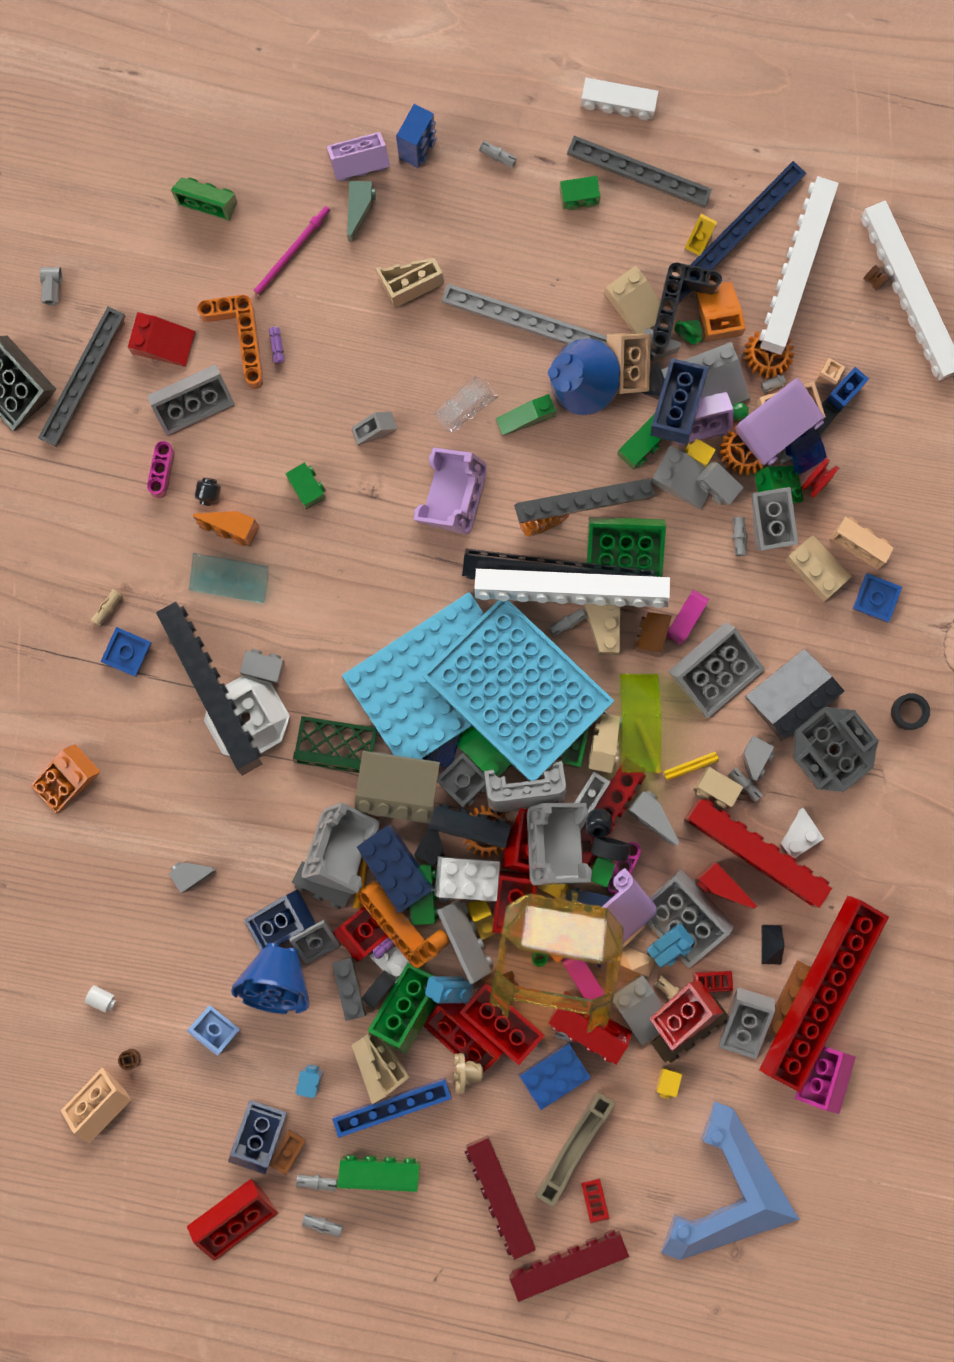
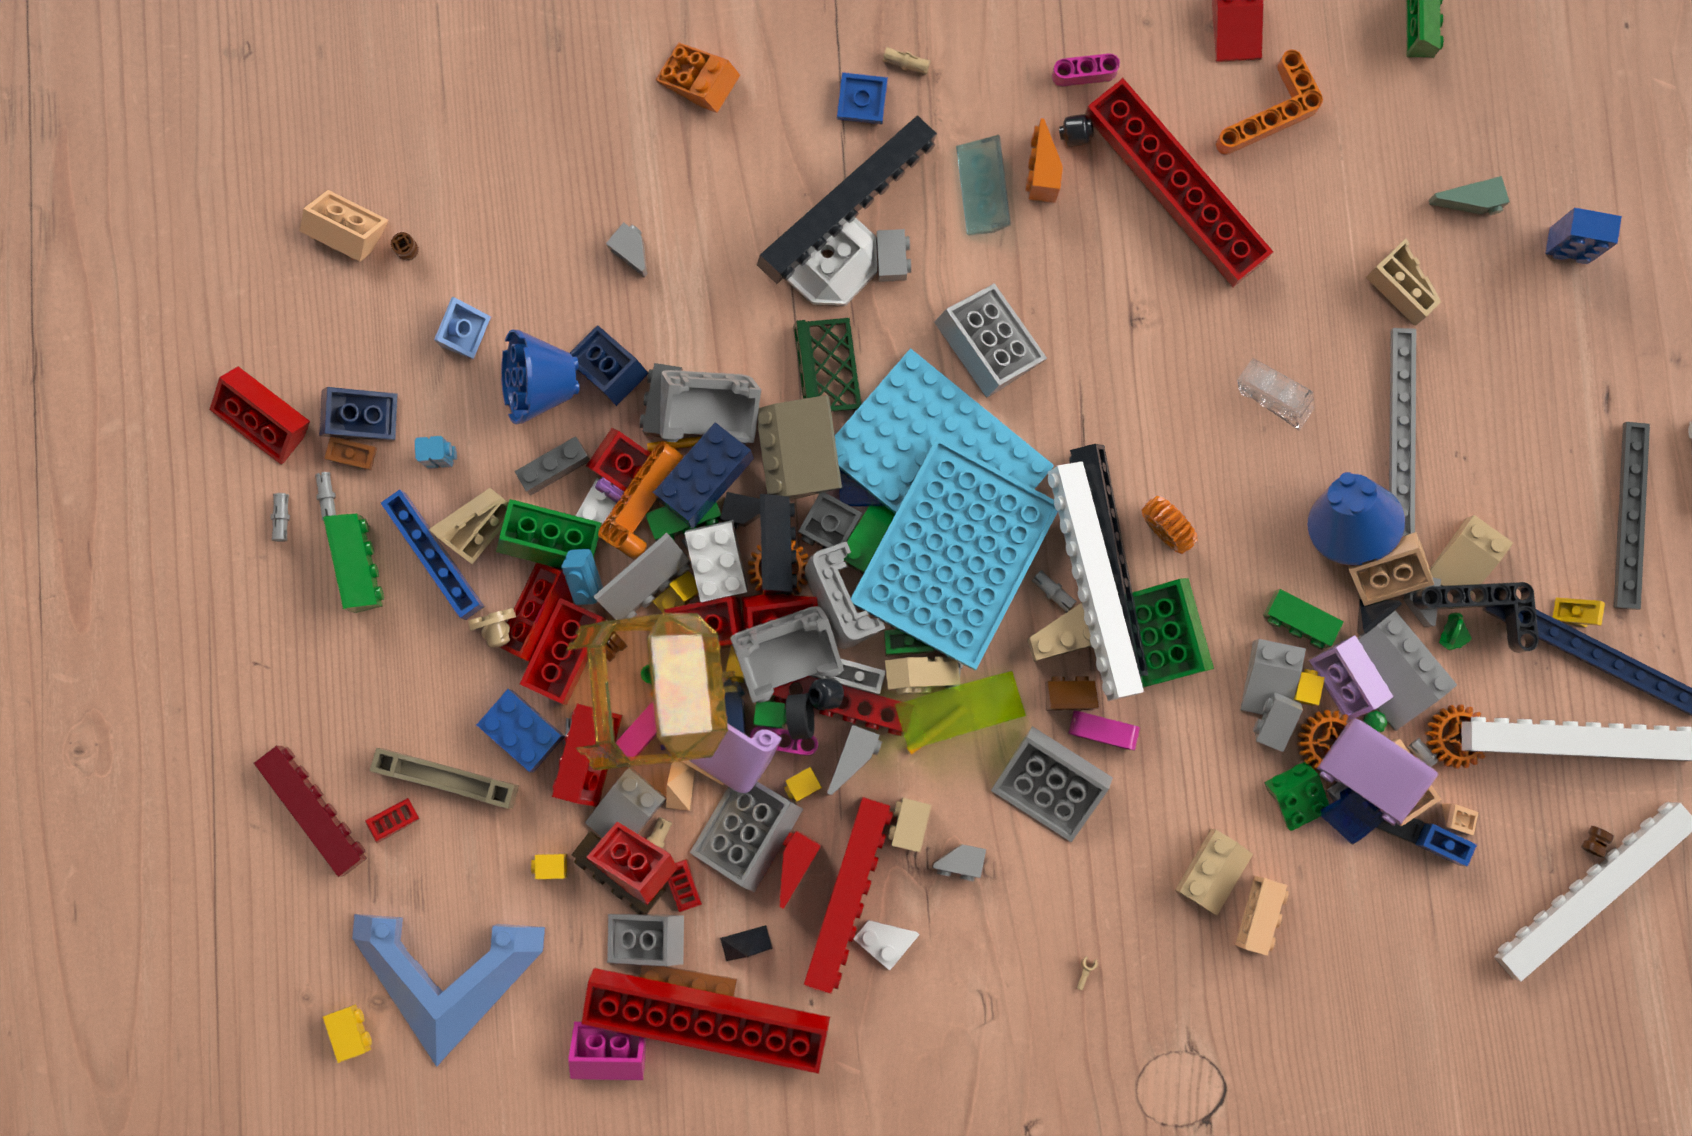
camera: 75 degrees right, 0 degrees up
(100, 999) = (462, 193): white brick -> none
(190, 400) = (1178, 78): light grey slope -> none
(275, 426) = (1178, 182): none -> red brick
(276, 345) = (1275, 155): medium lavender axle -> none
(305, 485) = (1119, 239): green brick -> none
(314, 224) = (1437, 154): dark pink bar -> none
(315, 941) = (595, 411): light grey slope -> none
(354, 610) = (989, 339): none -> light grey slope
(358, 156) = (1535, 178): lavender slope -> none
(374, 427) = (1214, 296): light grey slope -> none
(378, 989) = (561, 498): black tyre -> none
(453, 491) = (1167, 411): lavender windscreen -> none
(497, 153) = (1595, 340): light grey pin -> none
(501, 1198) = (366, 709): dark red brick -> none
(527, 415) = (1287, 469): green slope -> none
(579, 192) = (1581, 451): green brick -> none
(584, 500) = (1204, 564): dark grey plate -> none
(662, 863) = (802, 784): none -> yellow brick
(670, 946) = (709, 822): dark azure brick -> none
(679, 401) = (1362, 640): dark blue brick -> none
(691, 766) = (928, 787): yellow axle -> none
(721, 313) = (1488, 664): orange slope -> none
(739, 536) = (1222, 765): light grey pin -> none
(748, 787) = (925, 857): light grey pin -> none
(754, 1283) = (347, 1033): none -> yellow brick
(773, 519) = (1255, 799): light grey slope -> none
(794, 694) = (1051, 885): slope -> none
(820, 477) = (1324, 841): red wheel -> none
(853, 753) = (995, 976): dark grey piece -> none
(866, 688) = (1085, 973): none -> tan hand
(877, 598) = (1200, 953): blue plate -> none
(910, 697) = (1092, 1033): black tyre -> none

